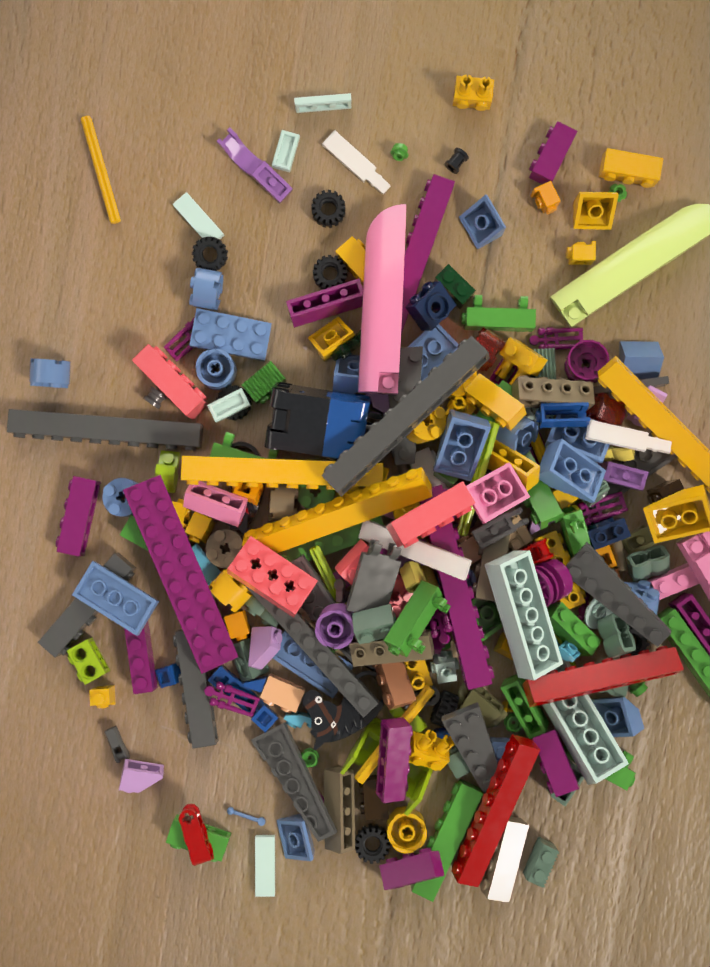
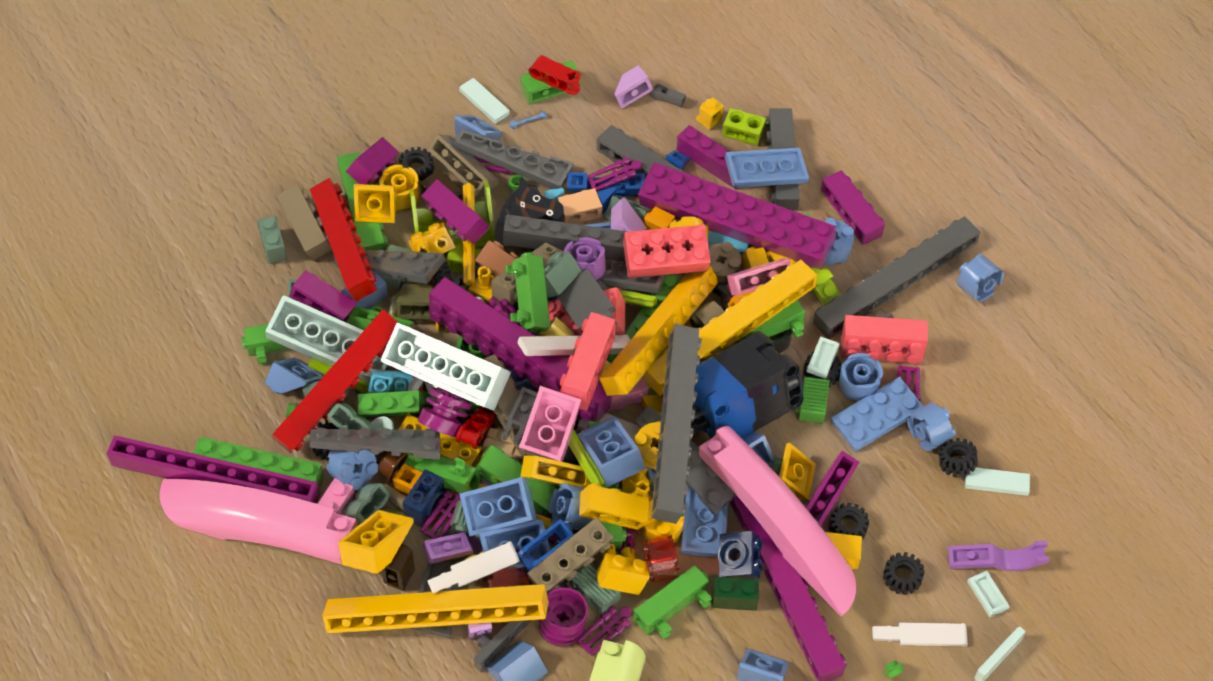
camera: 135 degrees right, 30 degrees down
(100, 169) = (1114, 455): yellow axle -> none
(446, 823) = (375, 203): none -> yellow slope

